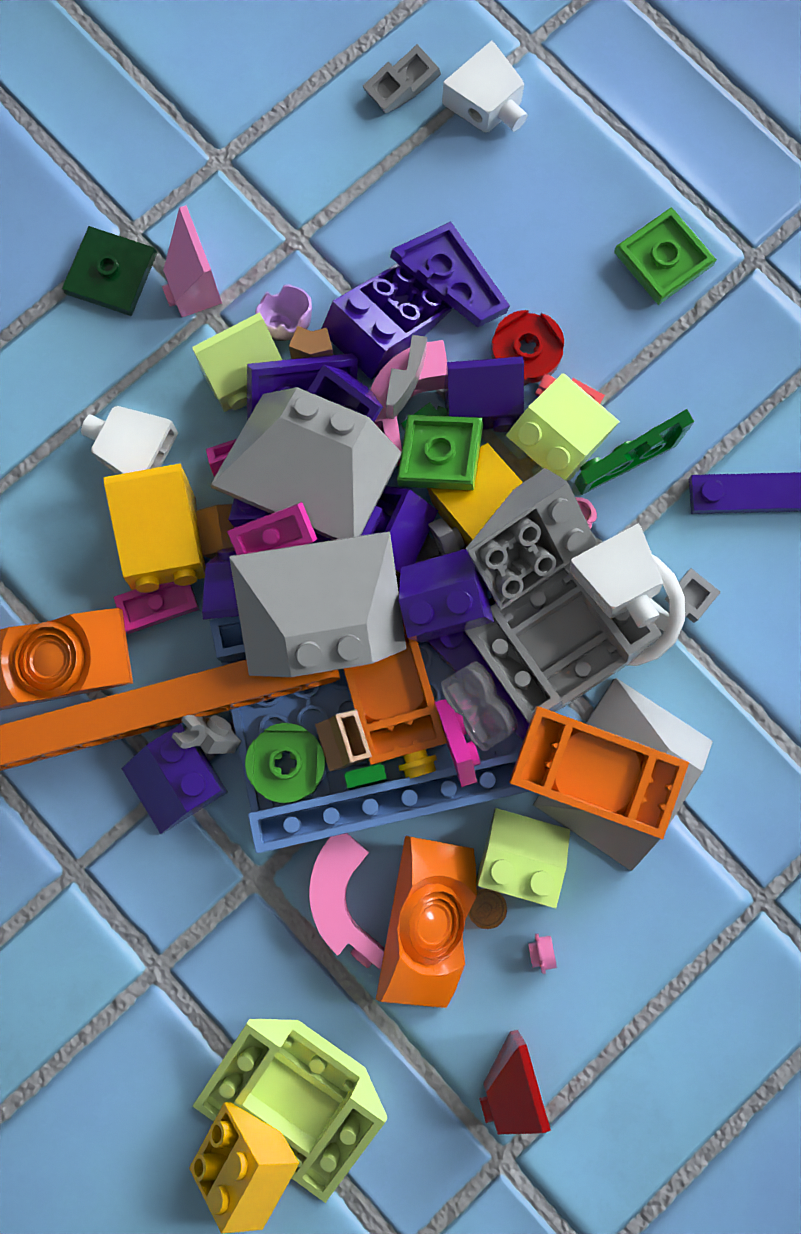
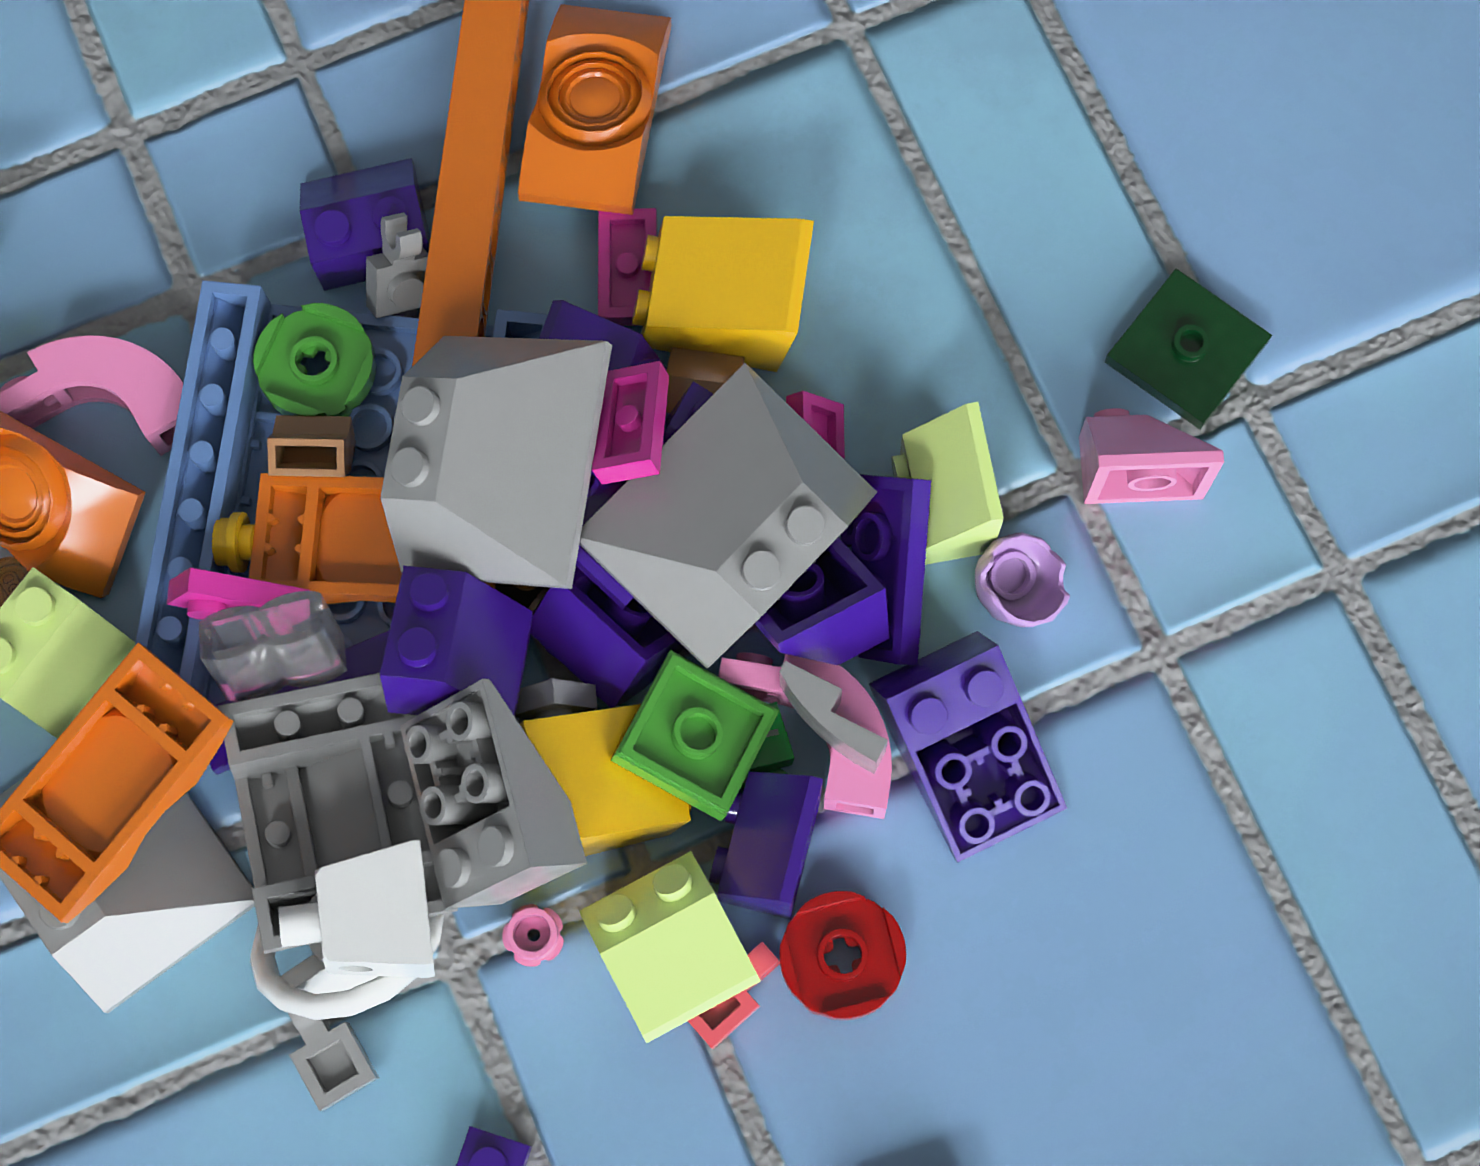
camera: 115 degrees right, 5 degrees down
(130, 439) = (882, 295): white torso -> none
(310, 343) = (945, 603): medium nougat piece -> none
(365, 776) = (247, 462): green tile -> none
(403, 81) = (1402, 919): light grey slope -> none
(453, 273) = (1009, 876): dark purple wing -> none
(486, 91) = (1333, 1054): white torso -> none
(634, 452) = (588, 987): green wing -> none

